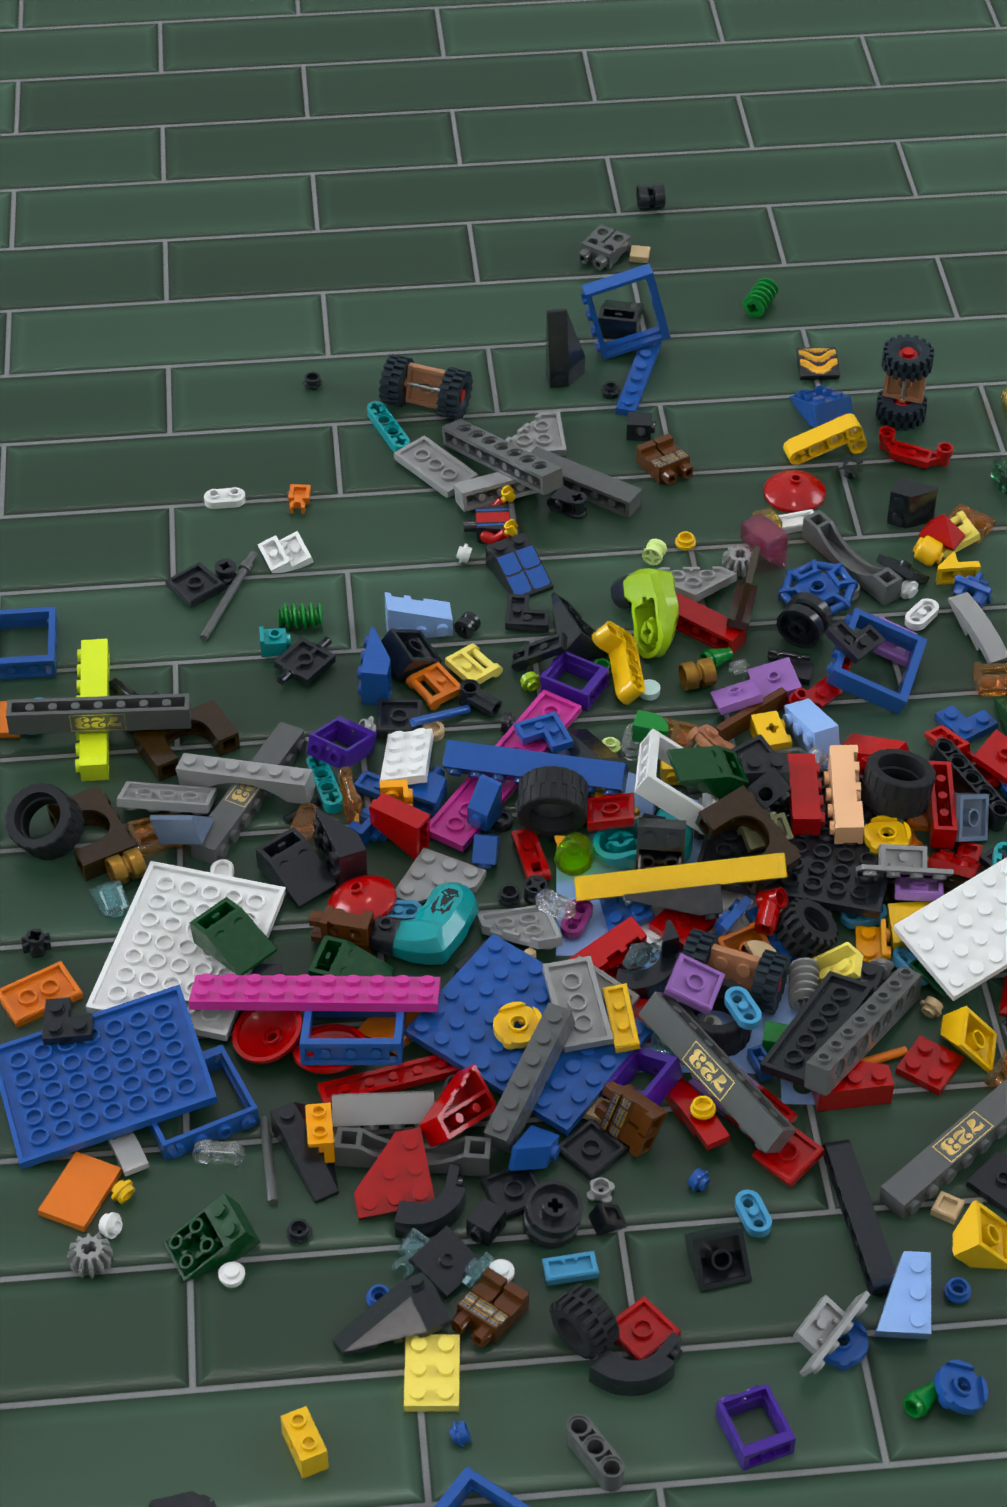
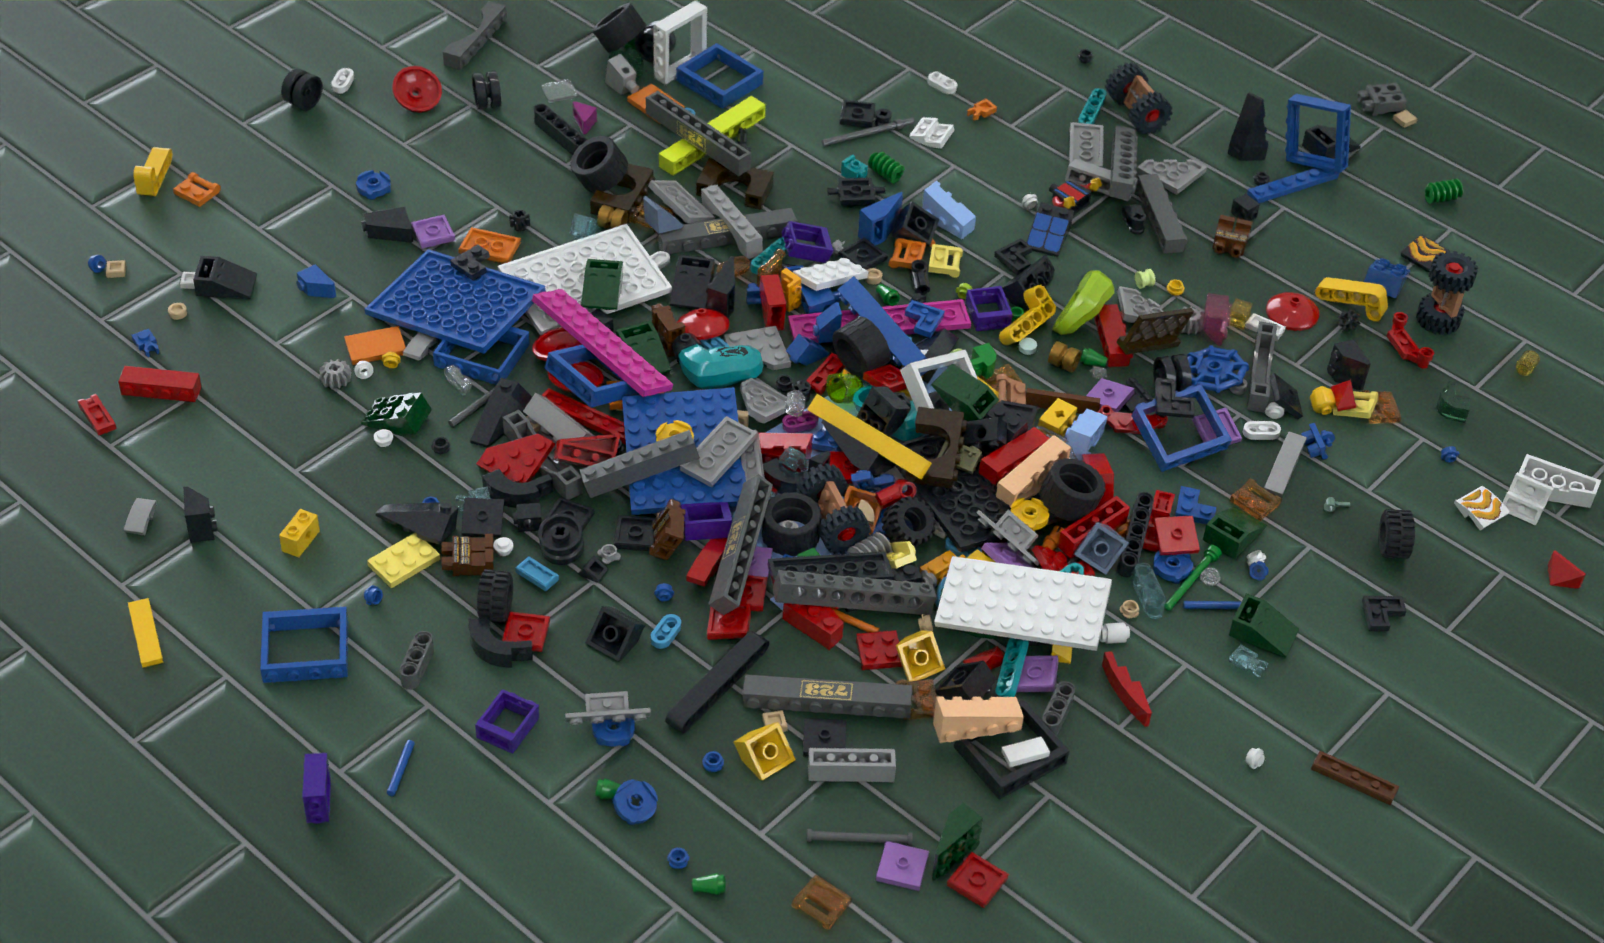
camera: 45 degrees right, 0 degrees up
(320, 1129) = (509, 402): light orange bracket -> none
(441, 715) = (885, 270): blue bar -> none
(467, 625) = (973, 237): black wheel -> none
(475, 735) = (888, 295): none -> green cone
(476, 1268) = (486, 528): clear light blue plate -> none
(534, 1150) = (599, 503): blue slope -> none
(539, 651) = (987, 277): black hinge -> none
(621, 1018) = (733, 478): yellow tile -> none
(650, 196) = (1461, 89): black wheel -> none
(694, 984) = (790, 490): medium lavender plate -> none
(703, 1108) = (708, 555): yellow plate -> none
(736, 697) = (1067, 384): medium lavender plate -> none
(743, 1010) = (795, 526): dark azure plate -> none
(909, 1299) = (671, 734): light blue wedge -> none
(951, 567) = (1324, 421): yellow slope -> none

